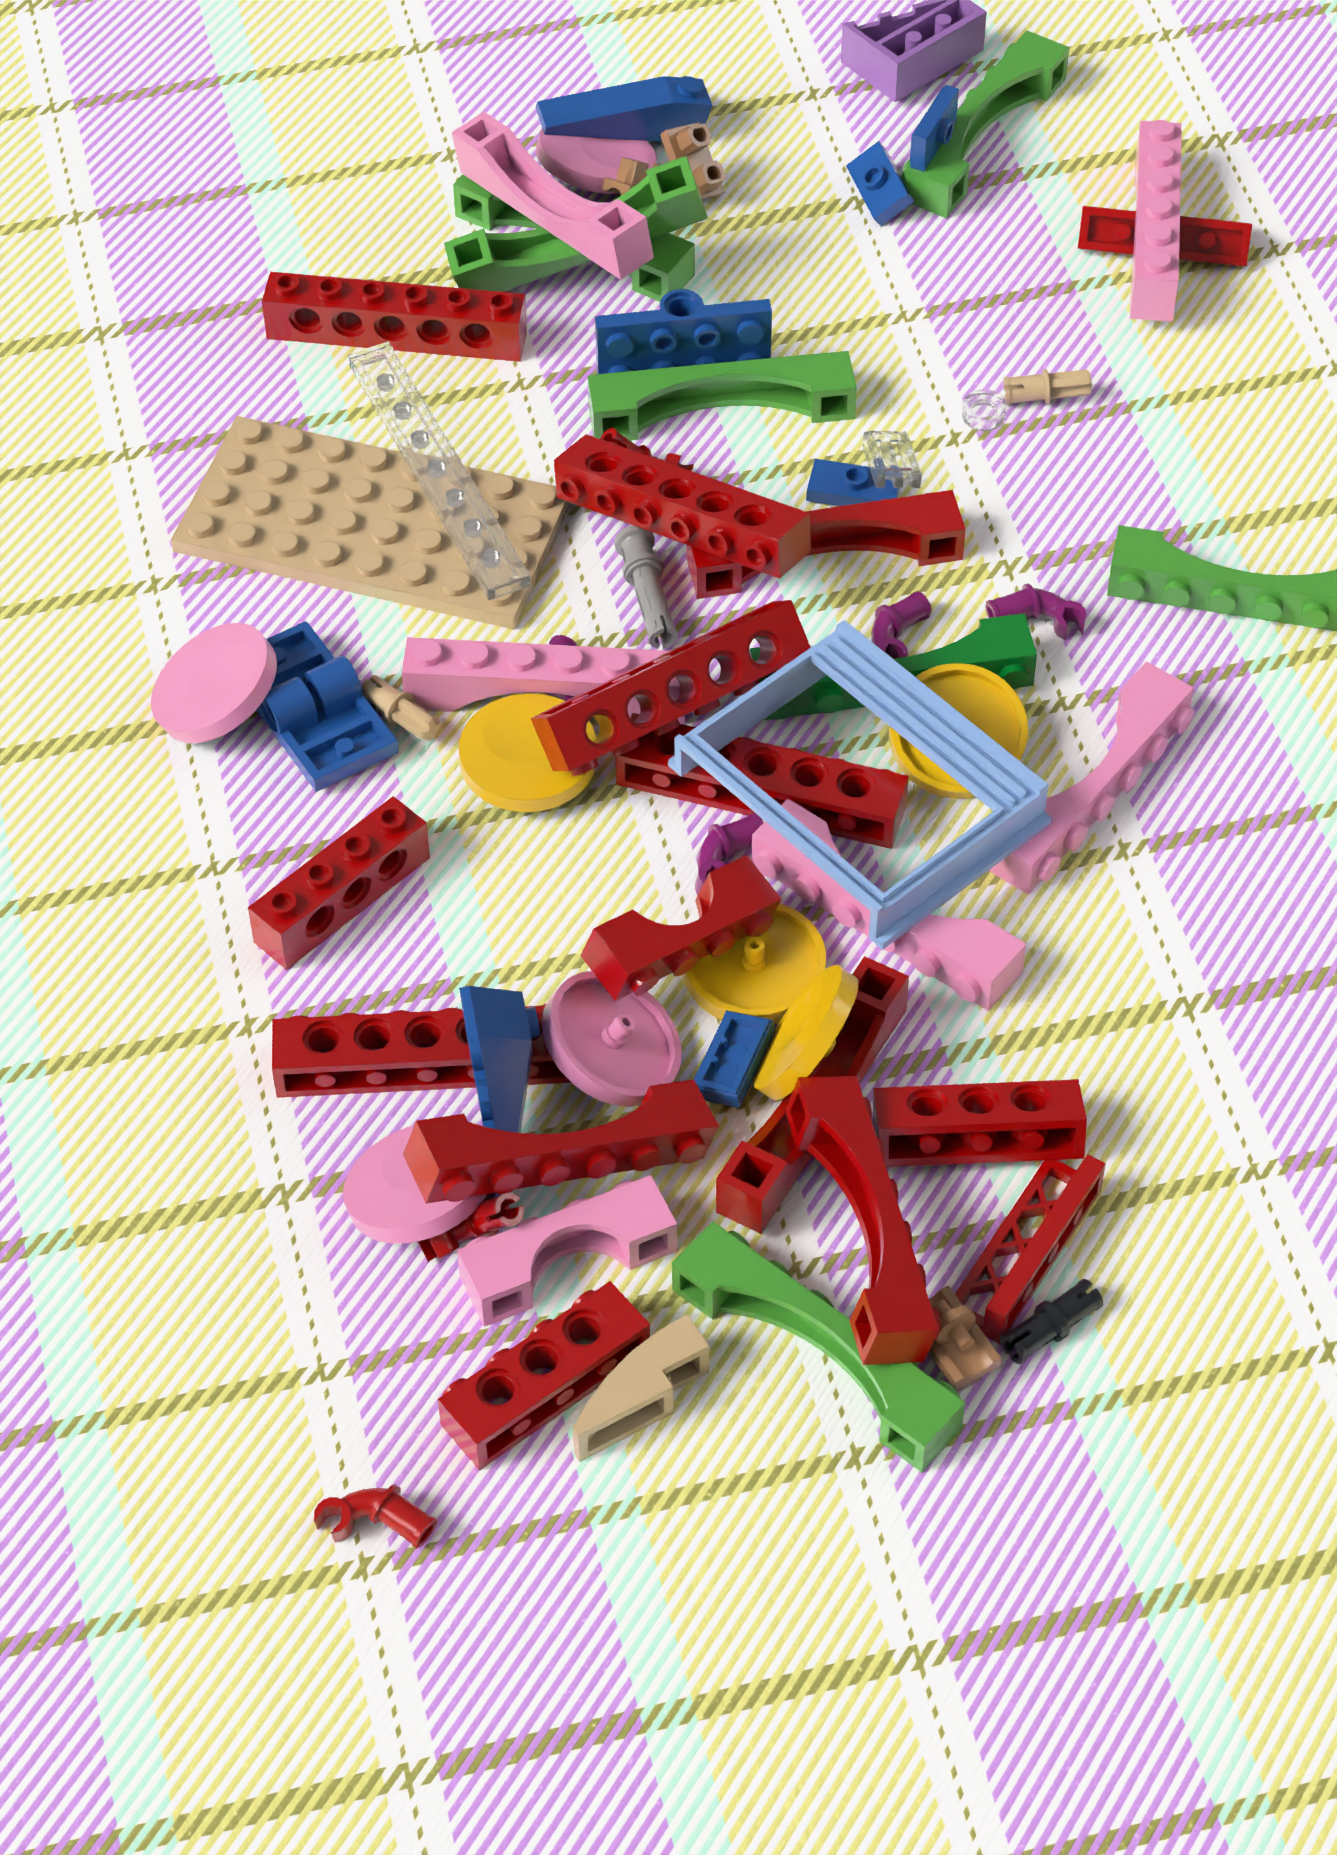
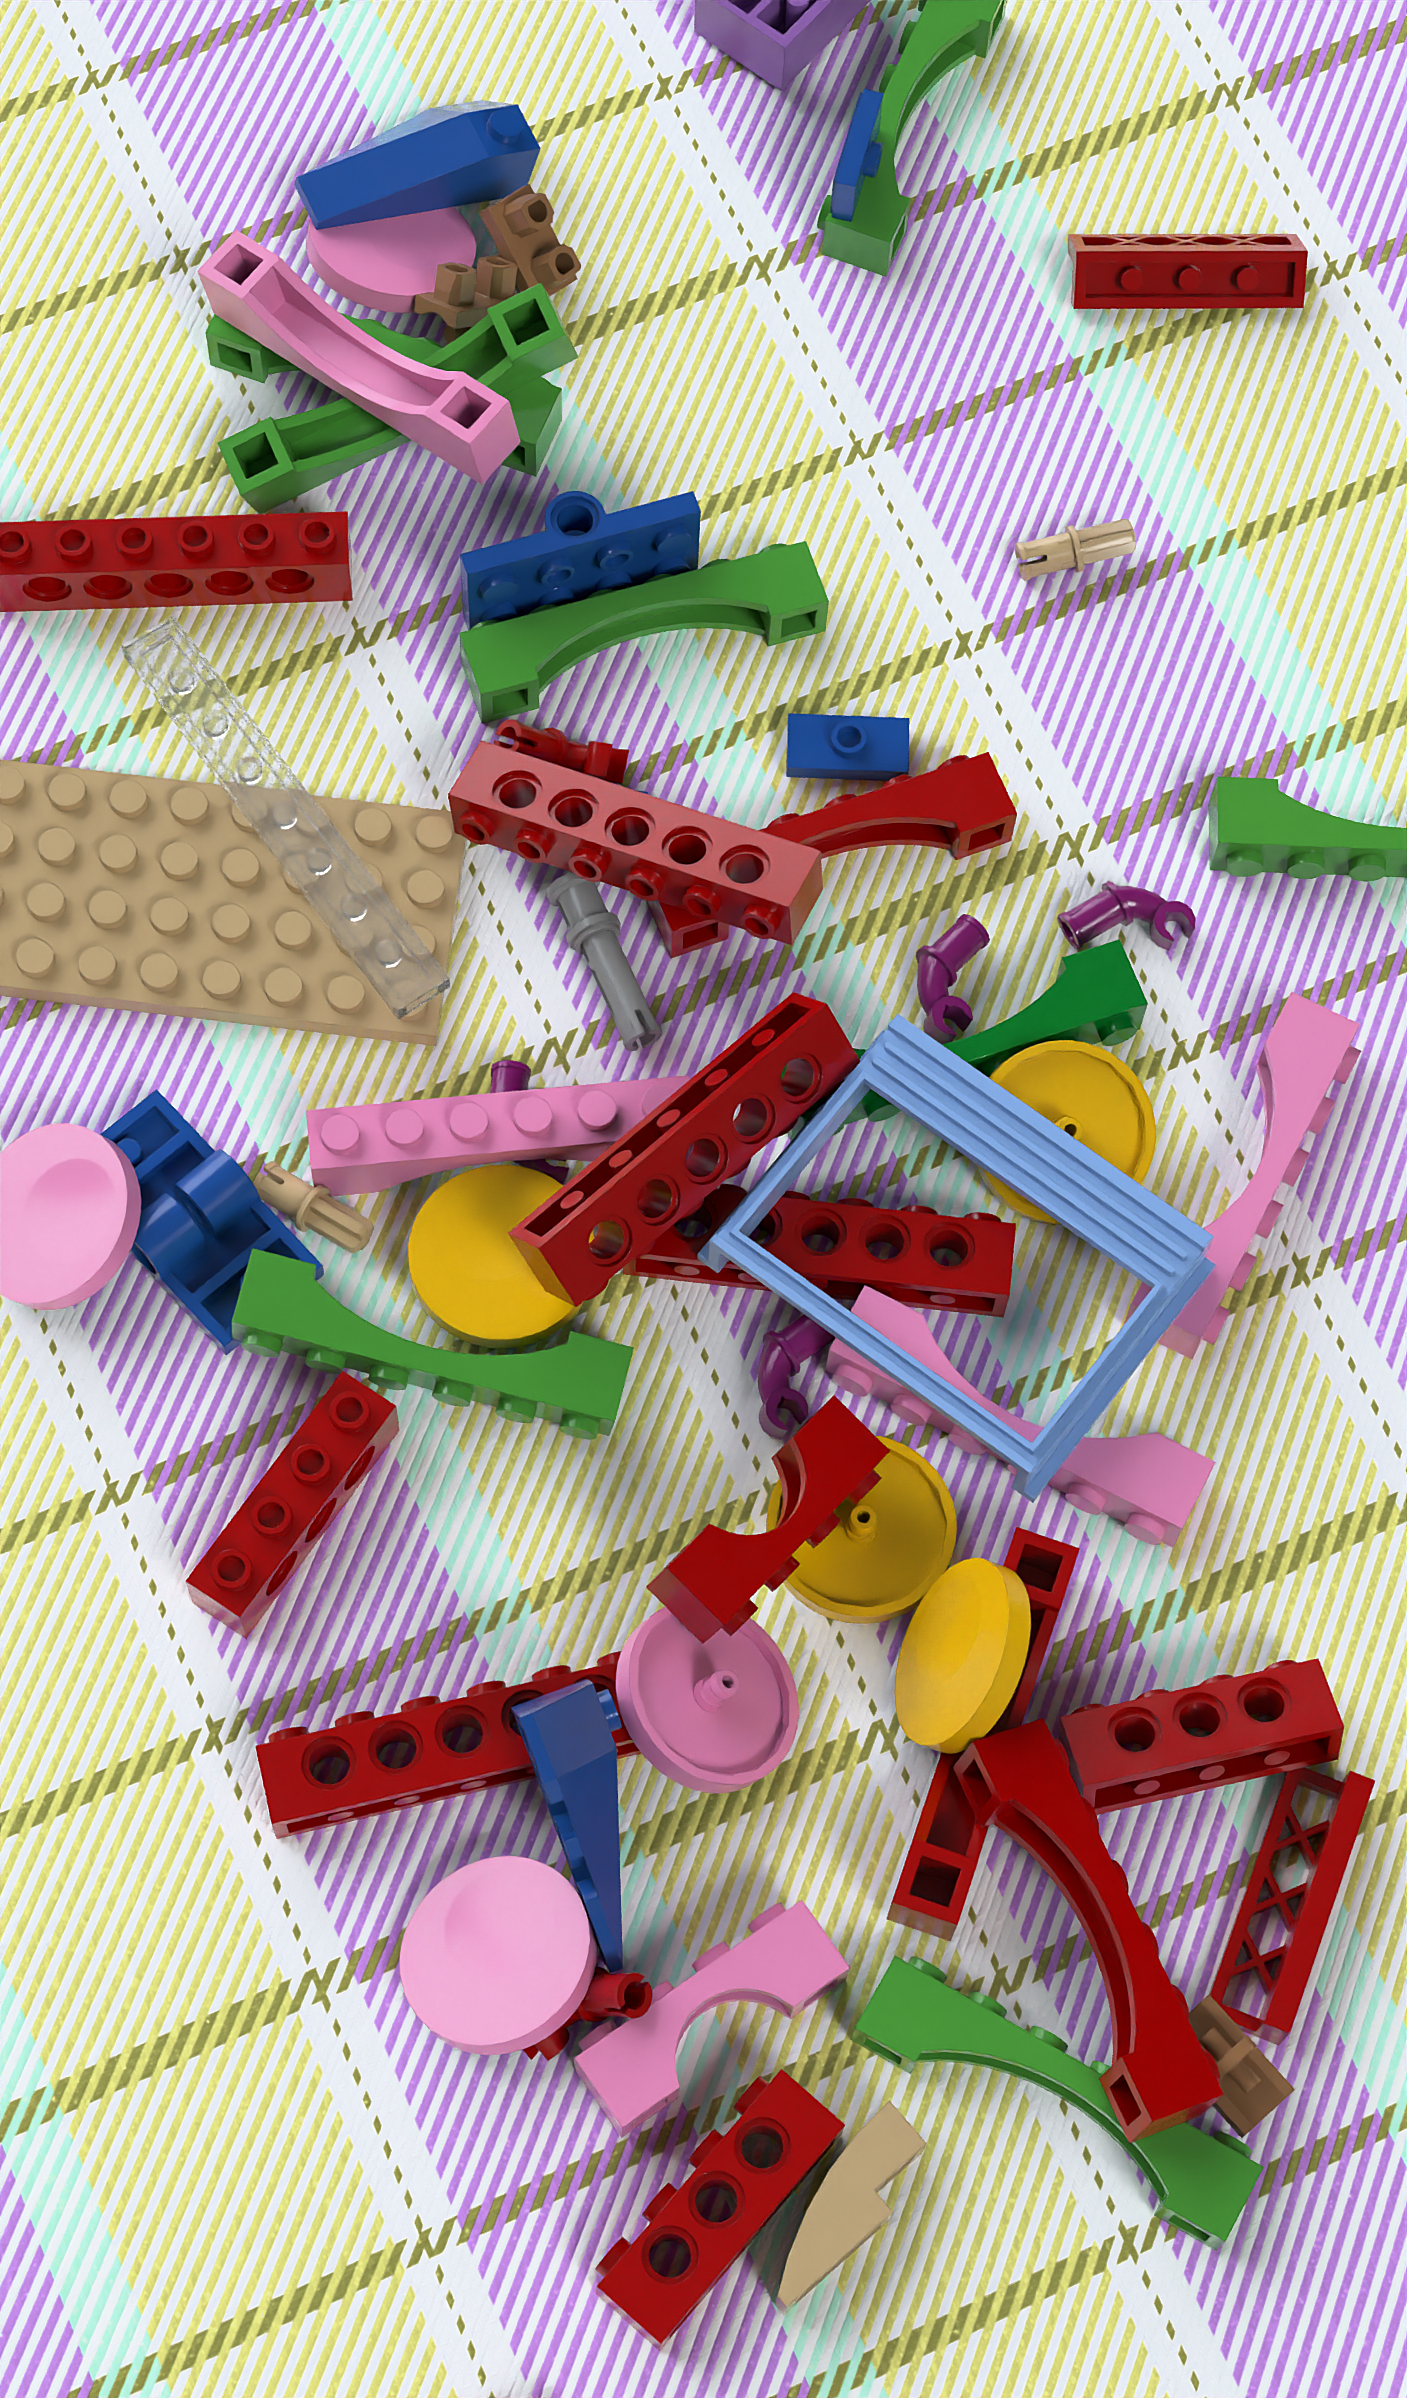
camera: 15 degrees left, 15 degrees up
(465, 1159) = (564, 1952): red arch -> none
(553, 835) = (292, 1313): none -> bright green arch
(734, 1058) = (865, 1688): blue plate -> none
(879, 183) = (789, 238): blue plate -> none
(892, 471) = (903, 733): clear tile -> none
(984, 410) = (997, 596): clear tile -> none
(1051, 1321) = (1340, 2008): black pin -> none
(1156, 221) = (1189, 312): bright pink arch -> none

